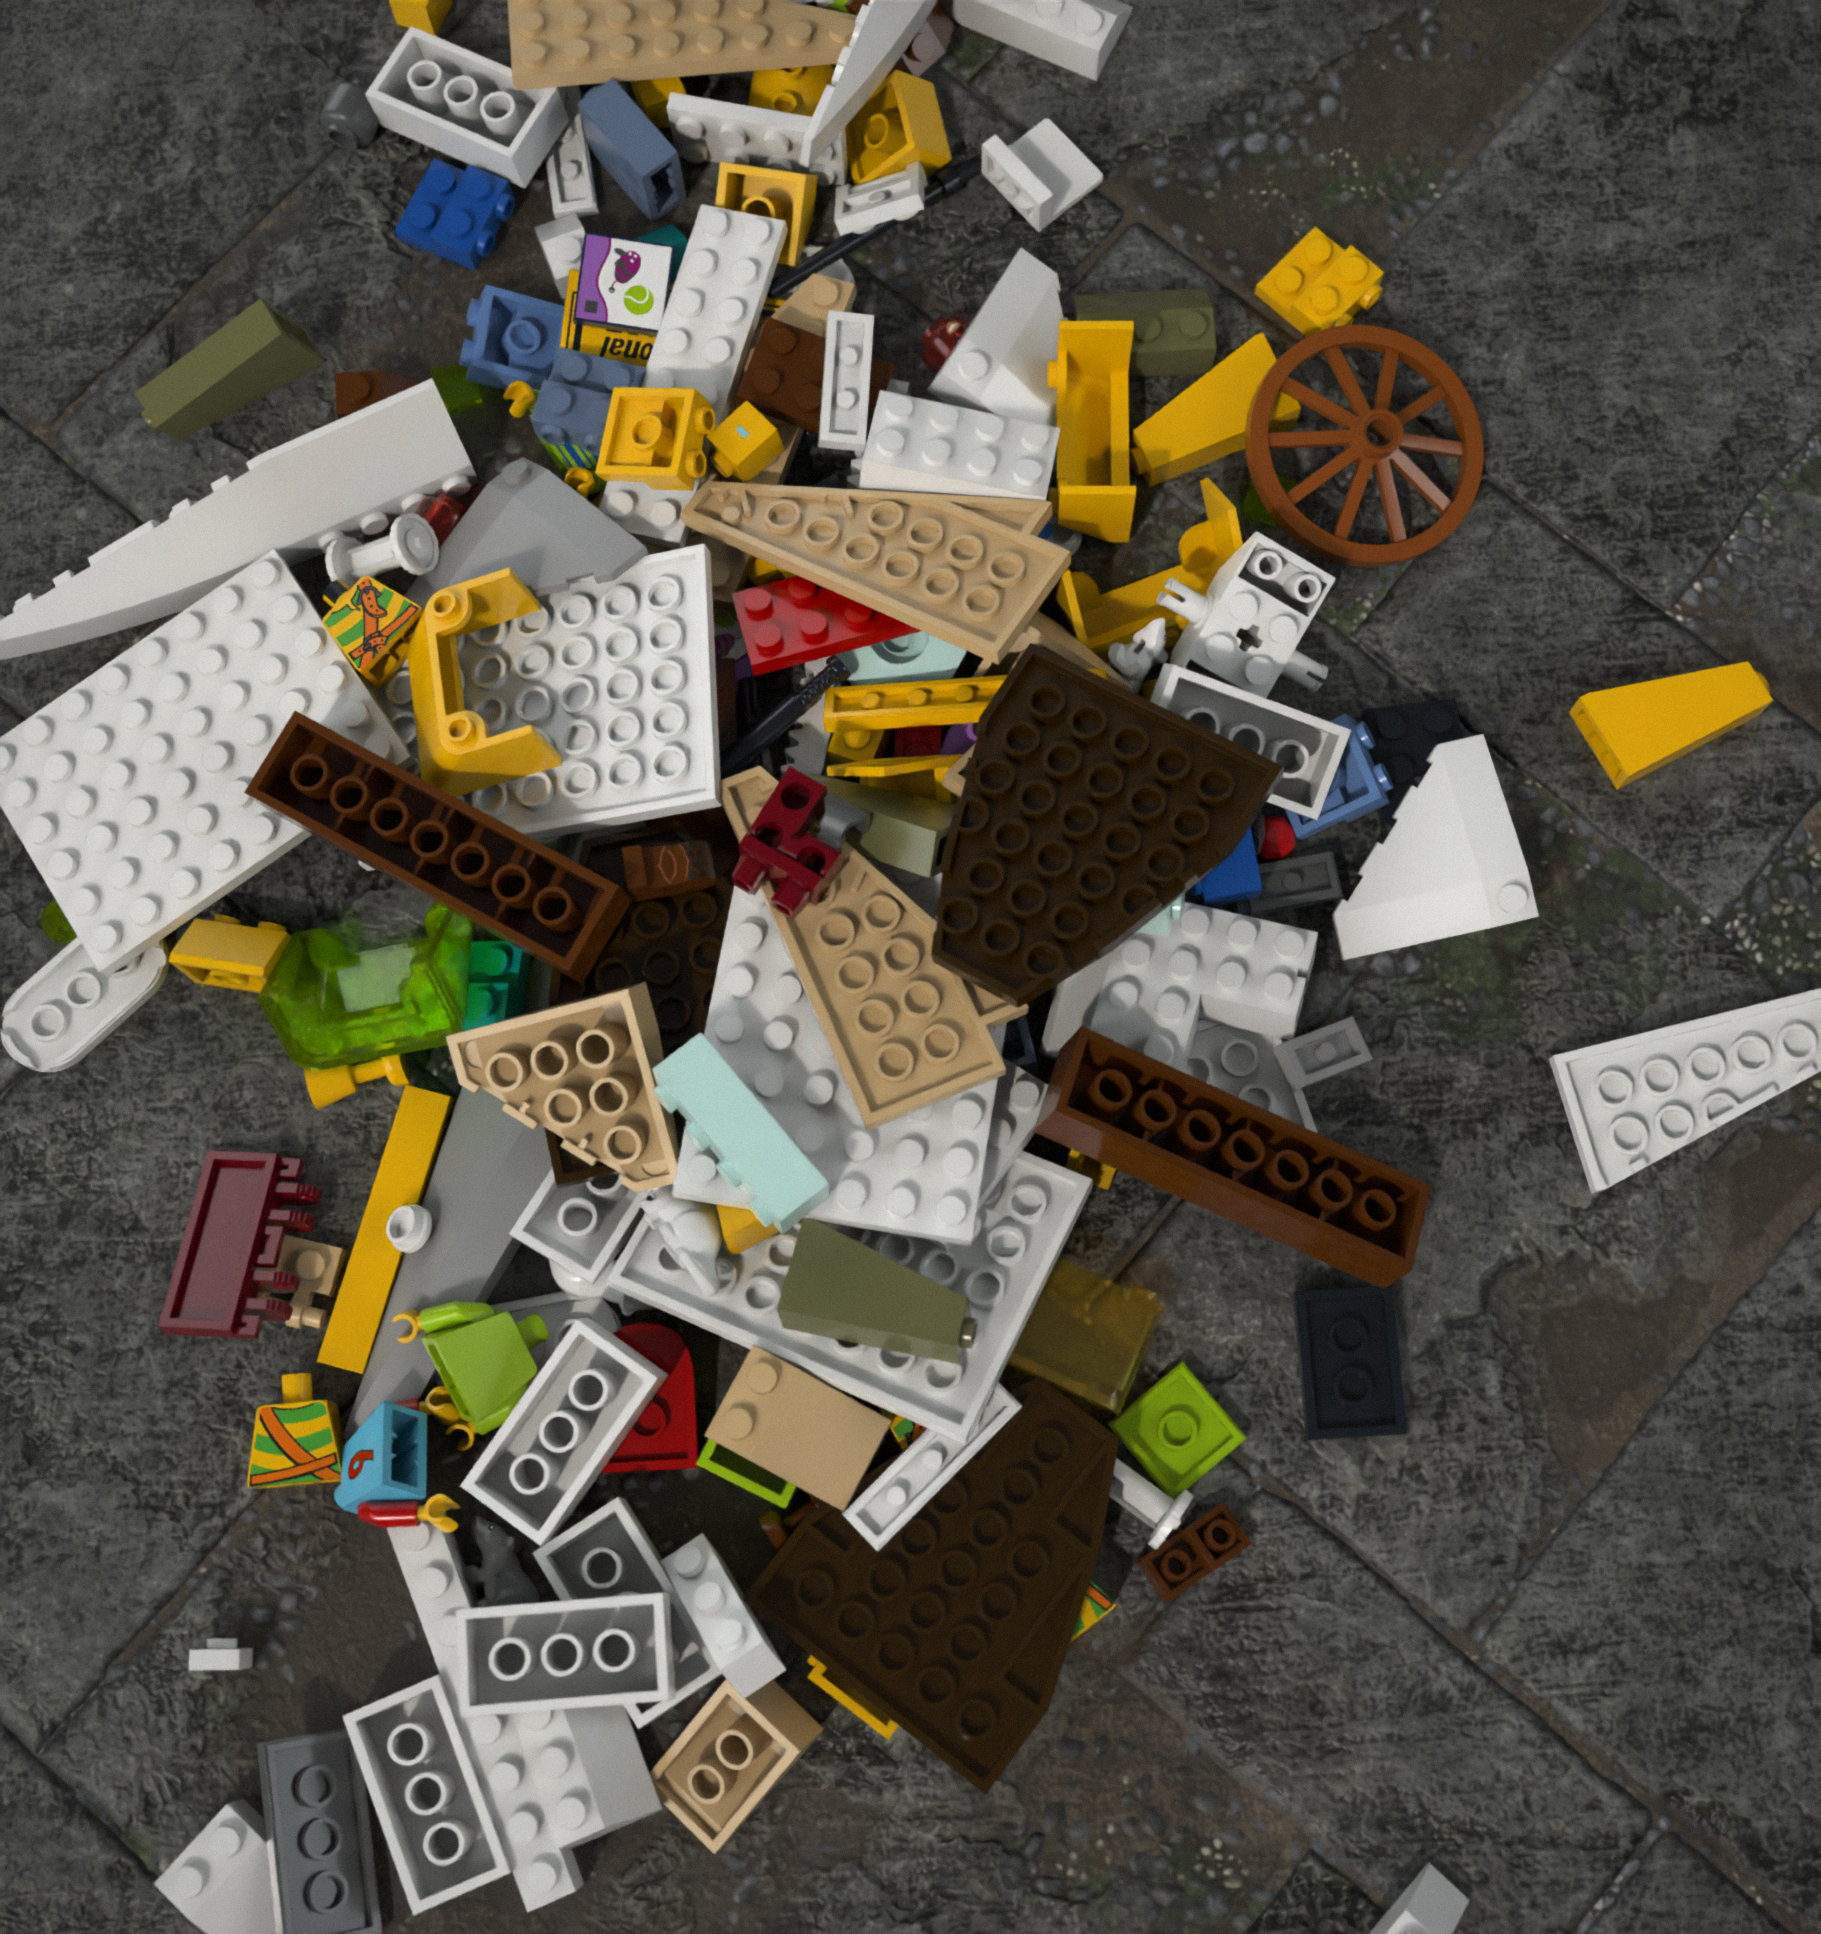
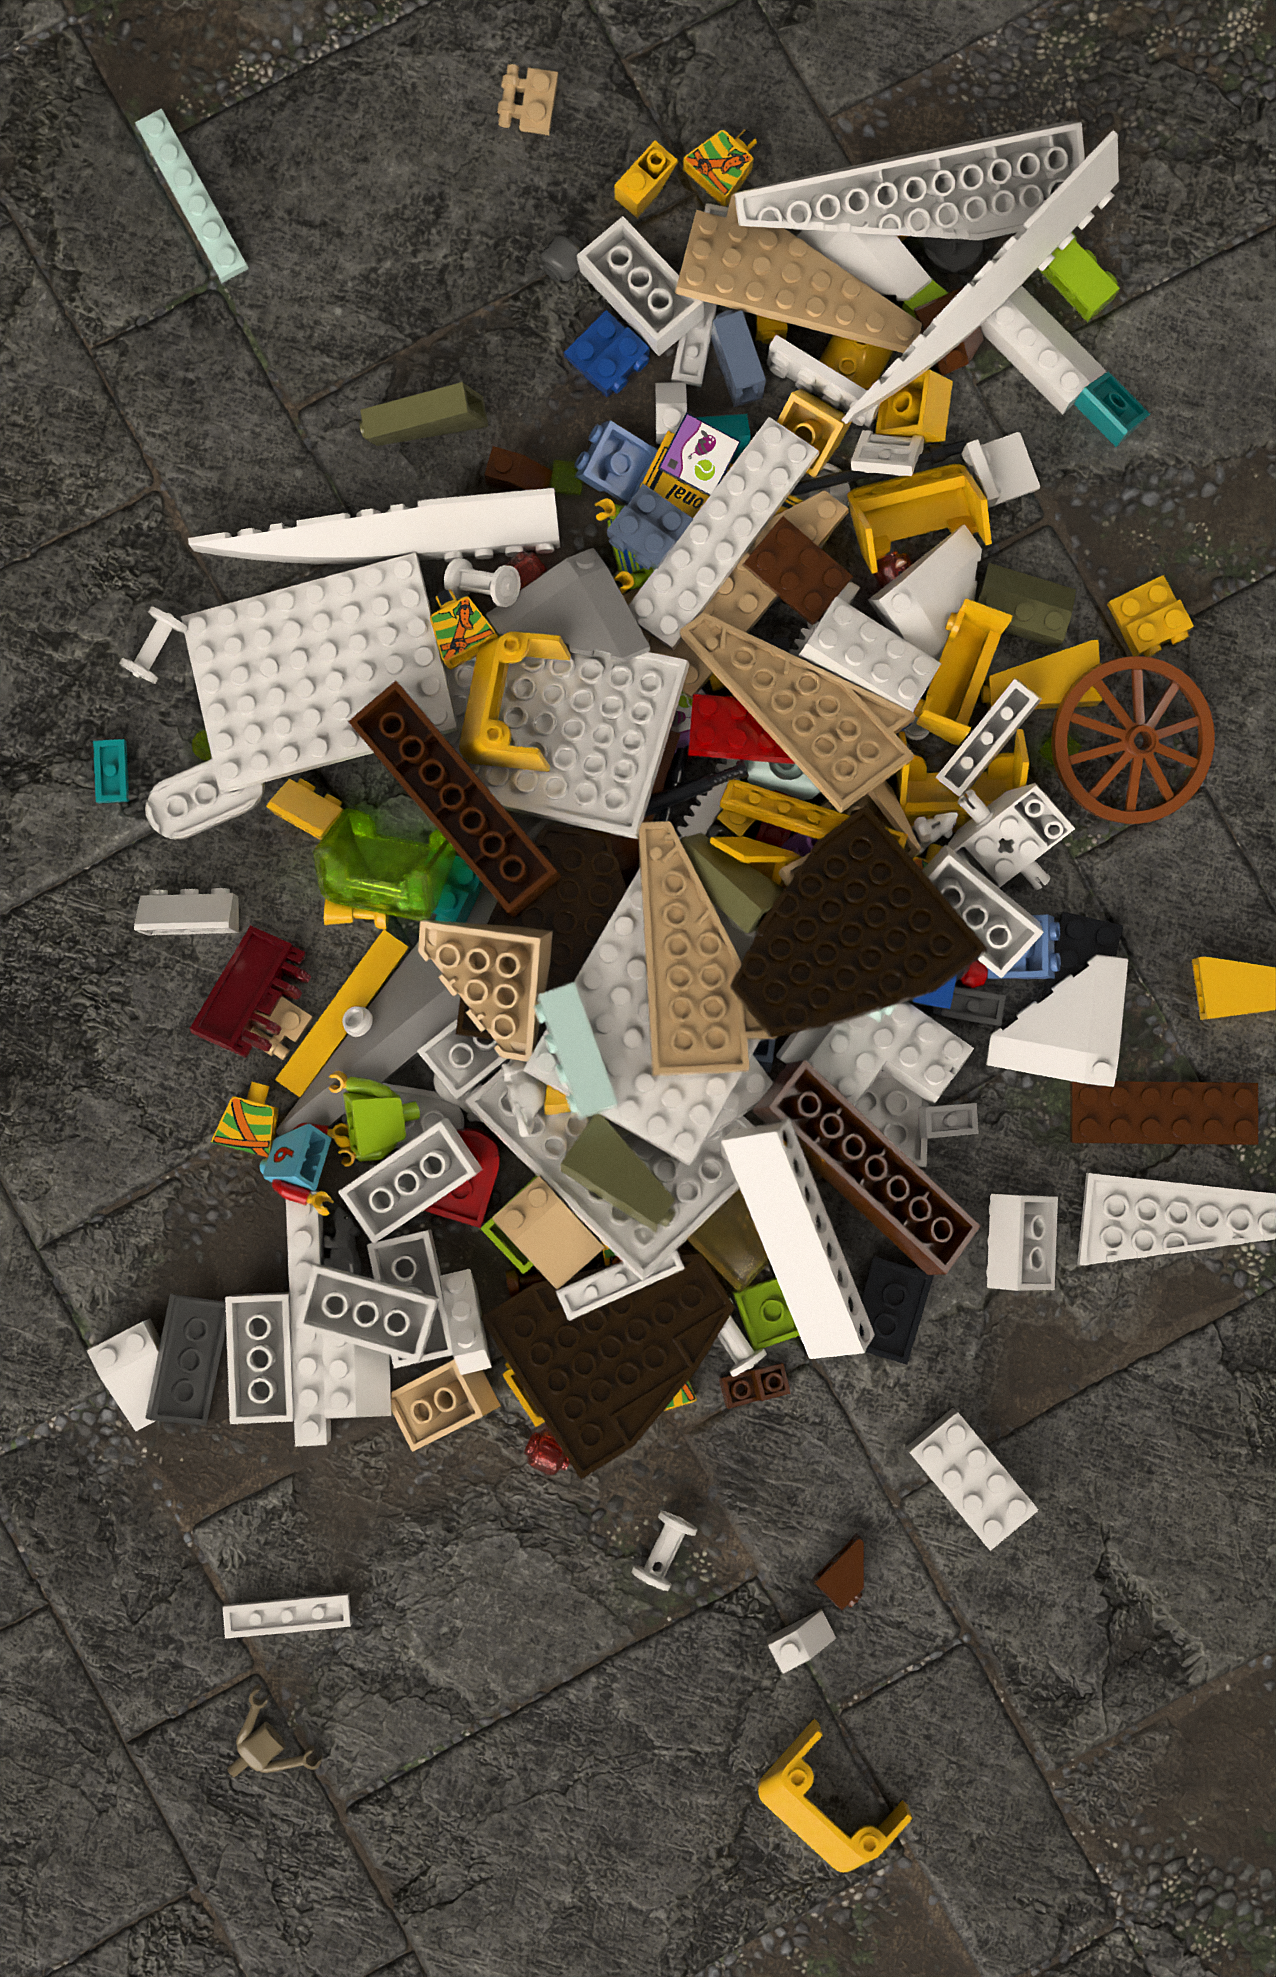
camera: 15 degrees right, 10 degrees up
(108, 1165) = (187, 912): none -> white slope
(221, 1655) = (163, 1233): white plate -> none
(655, 437) = (681, 576): yellow plate -> none
(668, 869) = (591, 864): reddish brown leg -> none
(744, 444) = (736, 597): yellow brick -> none
(787, 854) = (665, 888): dark red hips -> none
(846, 381) = (816, 581): white plate -> none
(919, 1776) = (545, 1453): none -> clear red head
(952, 256) = (916, 506): none -> yellow windscreen
(1155, 49) = (1111, 408): none -> teal slope
(1155, 1861) = (664, 1550): none -> white hose
(1166, 504) = (988, 737): none -> white brick
(1173, 1302) = (795, 1243): none -> white tile
(1442, 1792) = (844, 1574): none -> reddish brown slope
(1499, 1190) = (1022, 1242): none -> white slope
(1573, 1570) = (972, 1478): none -> white brick
(1622, 934) = (1164, 1113): none -> reddish brown plate

